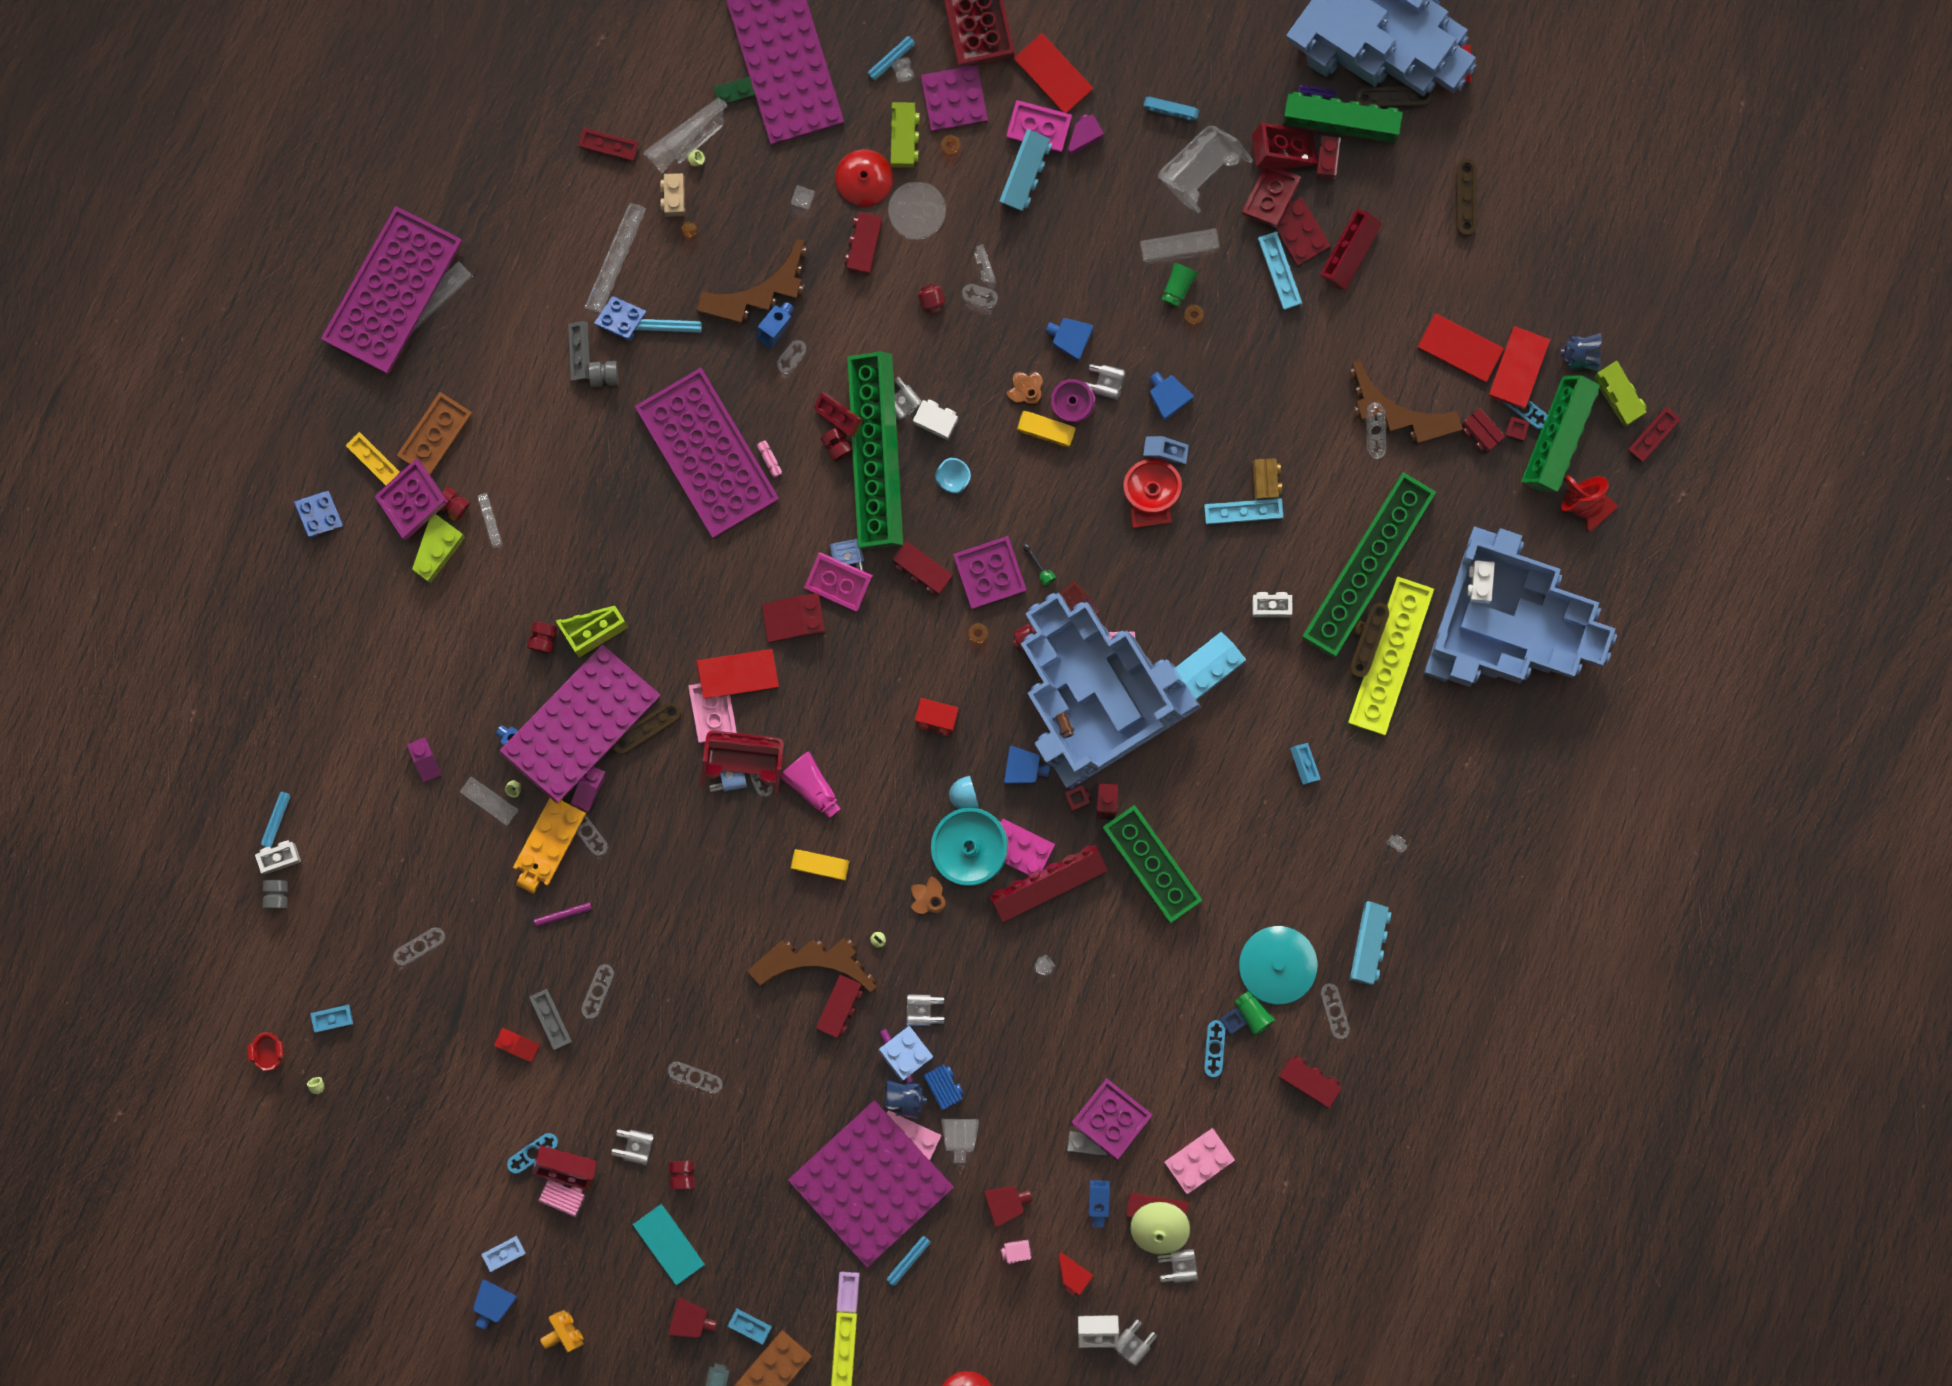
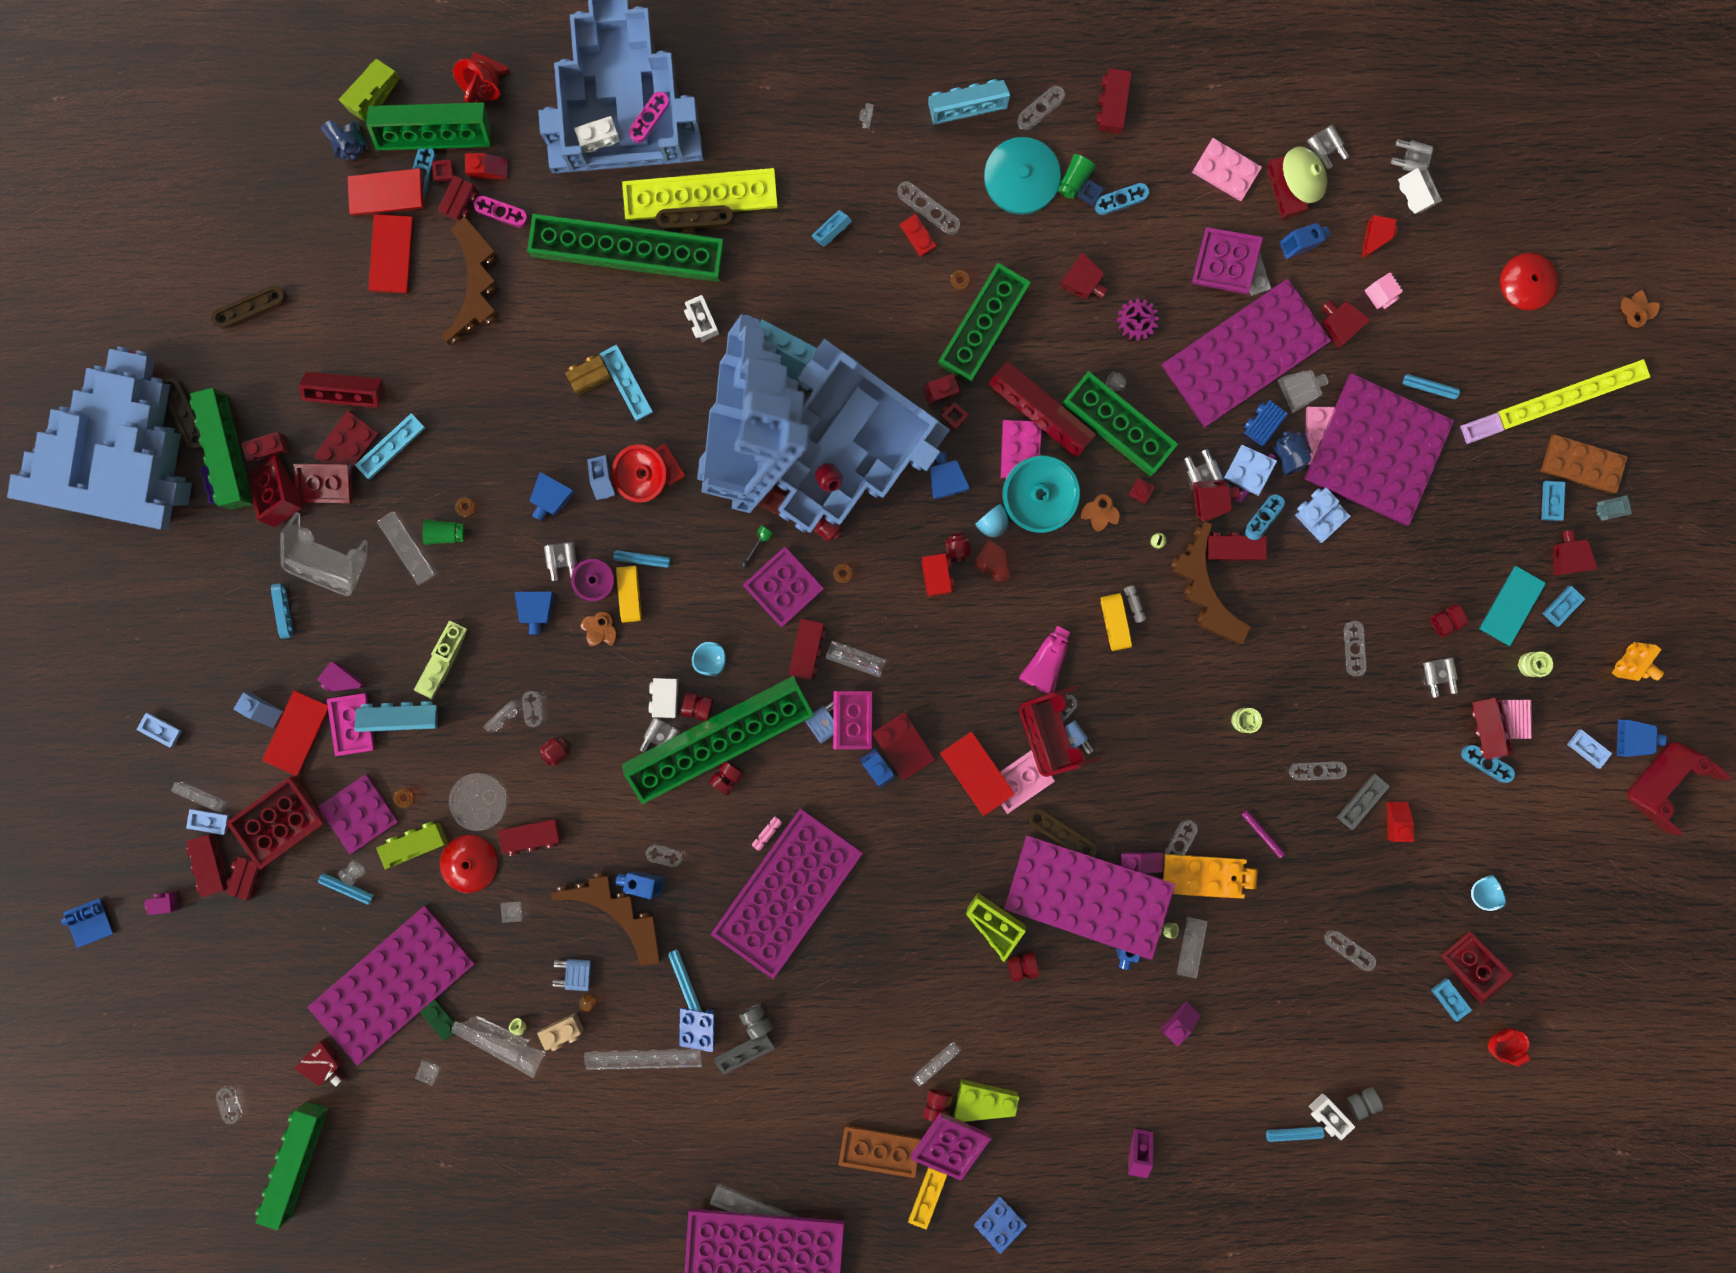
camera: 115 degrees left, 5 degrees up
(316, 1085) = (1517, 987): yellowish green hinge -> none
(324, 670) = (1141, 1153): none -> magenta slope
(350, 1055) = (1477, 967): none -> dark red slope
(414, 1097) = (1488, 894): none -> medium azure helmet
(448, 1309) = (1663, 775): none -> dark red windscreen
(605, 1237) = (1535, 664): none -> yellowish green wheel
(608, 144) = (540, 1114): dark red plate -> none
(647, 1290) = (1563, 606): none -> dark azure plate
(674, 944) = (1246, 720): none -> yellowish green wheel
(691, 61) = (428, 1072): none -> clear plate
(718, 231) = (577, 974): none -> medium blue piece
(783, 585) = (877, 768): none -> blue torso
(829, 890) = (1134, 604): none -> light grey axle
(834, 1103) = (1322, 514): none -> light blue plate
(838, 414) = (699, 788): dark red plate -> none
(862, 1051) = (1265, 509): none -> dark azure beam
(893, 609) = (855, 659): none -> clear plate
(894, 1005) = (1213, 498): none -> dark red torso
(914, 445) = (697, 706): none -> dark red wheel
(927, 774) = (994, 561): none -> clear red slope
(931, 944) = (1141, 491): none -> dark red plate
(954, 749) = (957, 547): none -> dark red head
(1002, 948) = (1119, 424): none -> green brick
(1017, 1100) = (1245, 353): none -> magenta plate
(1061, 233) = (441, 660): none -> yellowish green slope
(1064, 725) = (895, 453): reddish brown pin -> none
(1069, 654) = (829, 477): none -> dark red head
(1073, 455) = (644, 559): none -> dark azure axle
(1084, 1007) = (1145, 319): none -> magenta gear
(1089, 49) = (258, 710): none -> medium blue slope
(1152, 604) = (754, 421): none -> medium blue panel
(1154, 978) = (1084, 278): none -> dark red torso
(1209, 858) = (960, 273): none -> clear orange plate
(1264, 842) = (917, 235): none -> red plate
(1284, 861) = (926, 210): none -> clear beam
(1381, 417) = (493, 300): clear beam -> none
(1450, 479) = (486, 212): none -> dark pink beam
(1467, 628) = (647, 109): none -> dark pink beam
(1503, 470) = (485, 166): none -> red slope
(1654, 434) = (394, 46): dark red plate -> none

